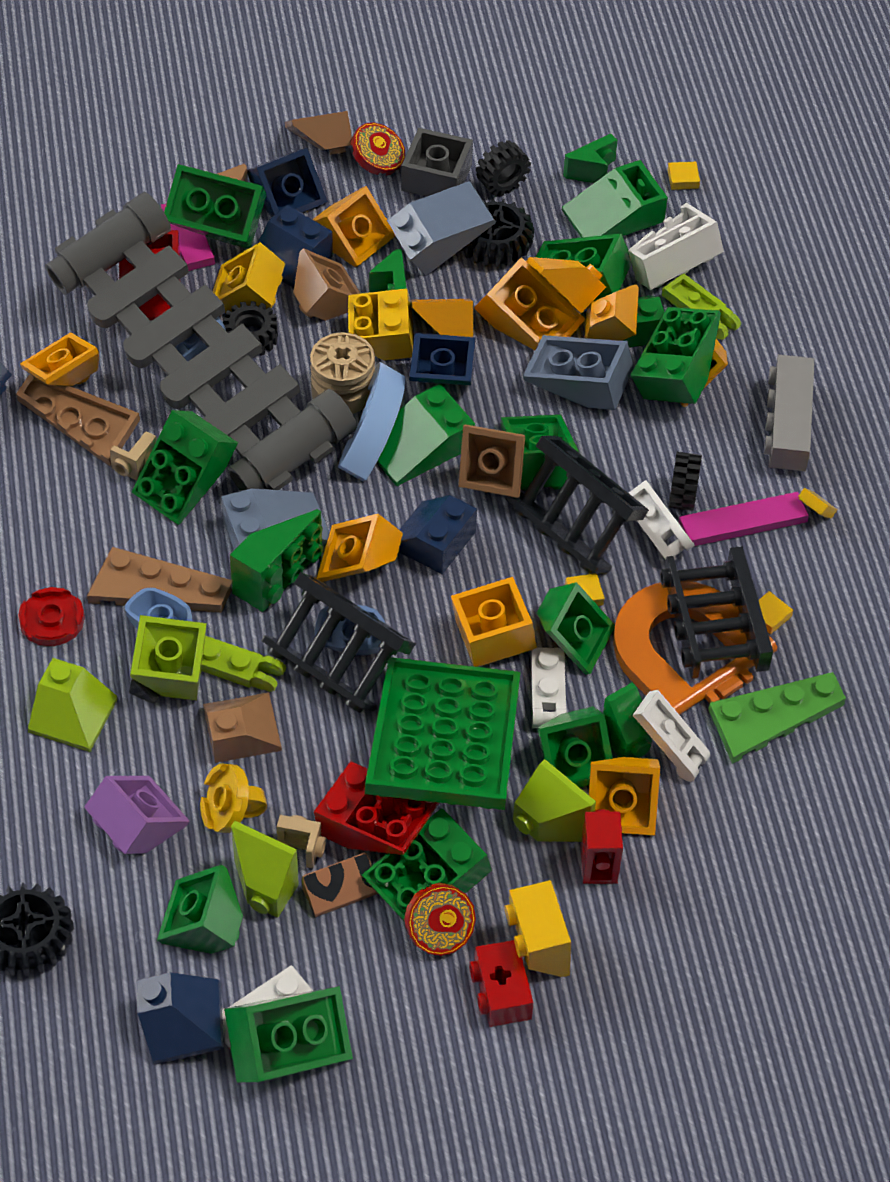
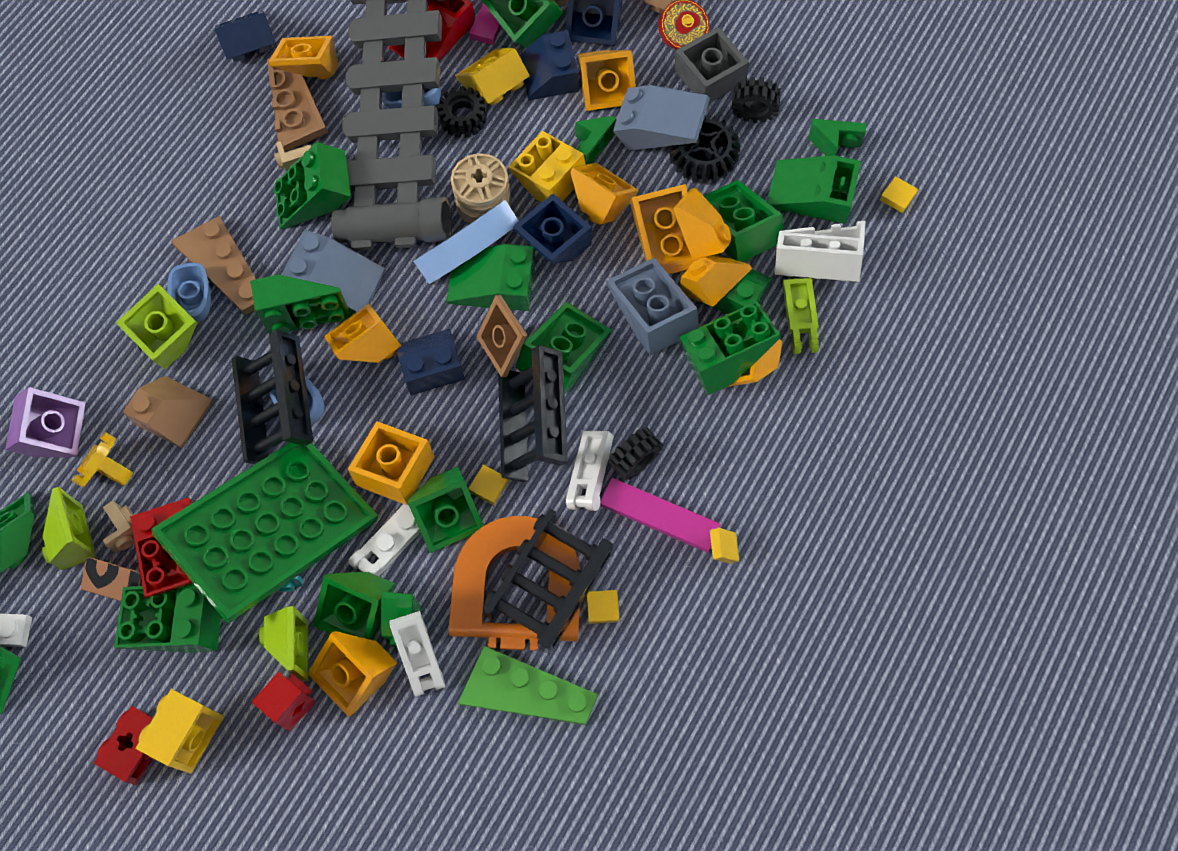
camera: 45 degrees right, 15 degrees up
(51, 616) = (140, 240): red tile -> none
(70, 705) = (84, 315): lime slope -> none
(240, 665) = (211, 360): lime hinge -> none
(322, 286) = (541, 108): medium nougat slope -> none
(440, 919) = (135, 663): tile -> none
(791, 412) = (776, 455): light grey brick -> none

